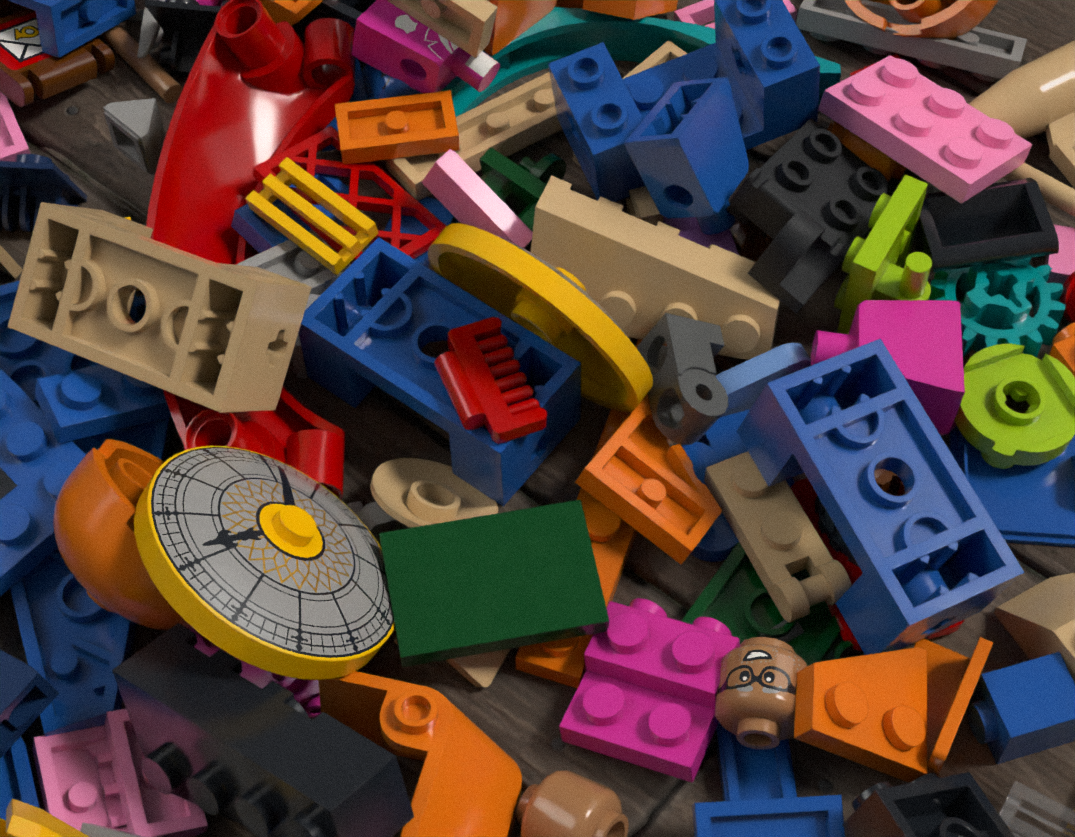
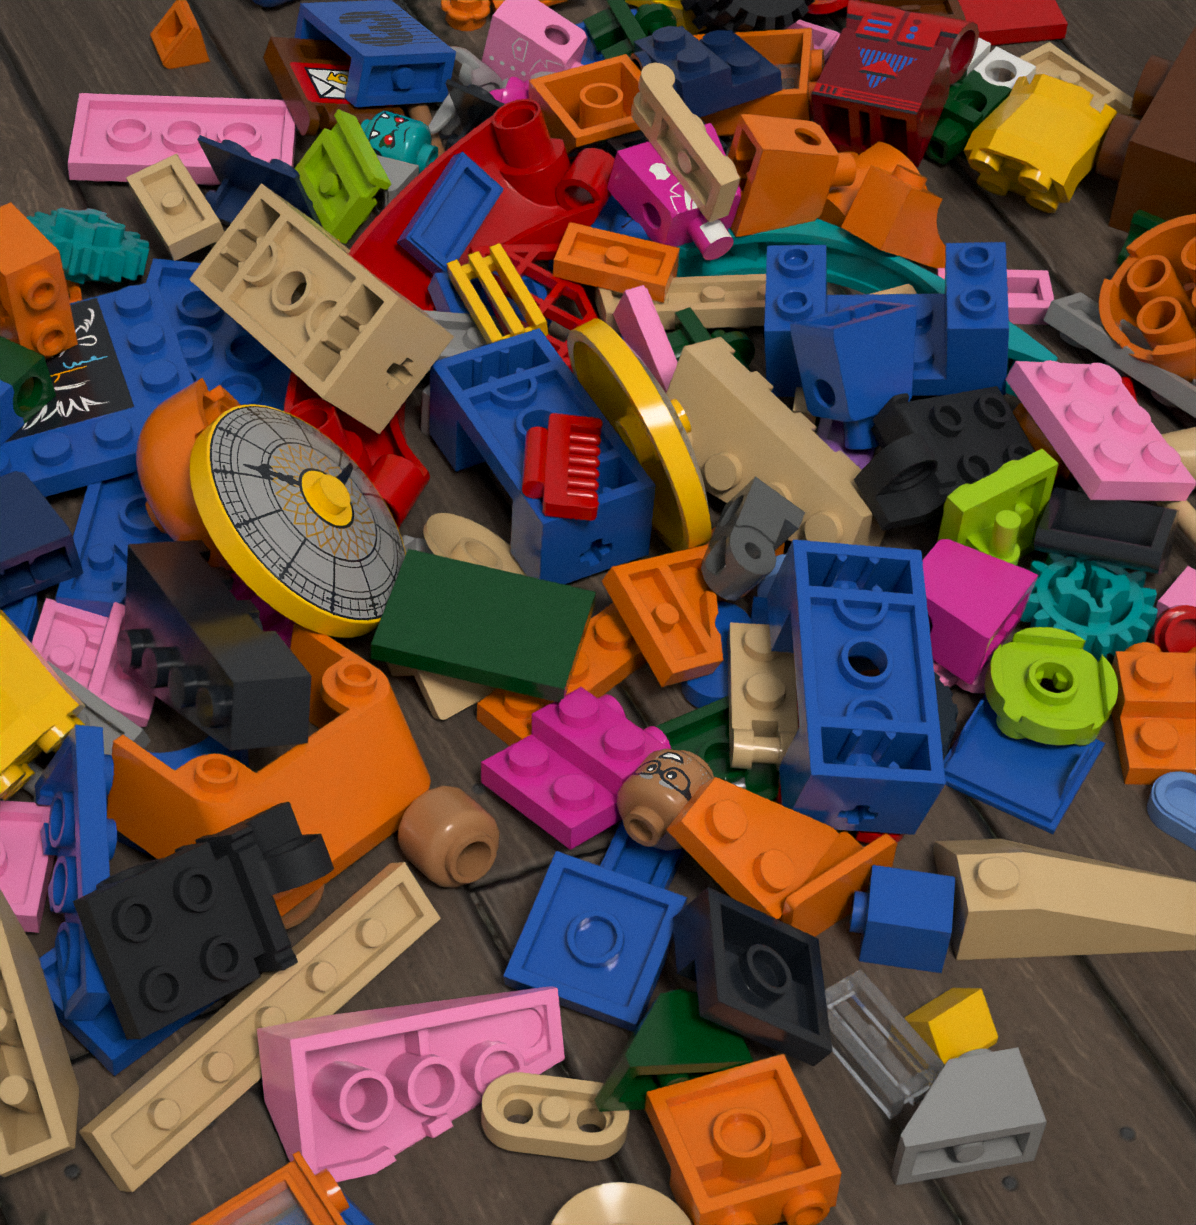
camera: 20 degrees right, 10 degrees down
(84, 137) = (342, 176): none -> lime plate
(97, 402) = (238, 366): blue plate -> none
(115, 78) = (400, 139): none -> teal head
(221, 144) = (450, 214): none -> blue tile

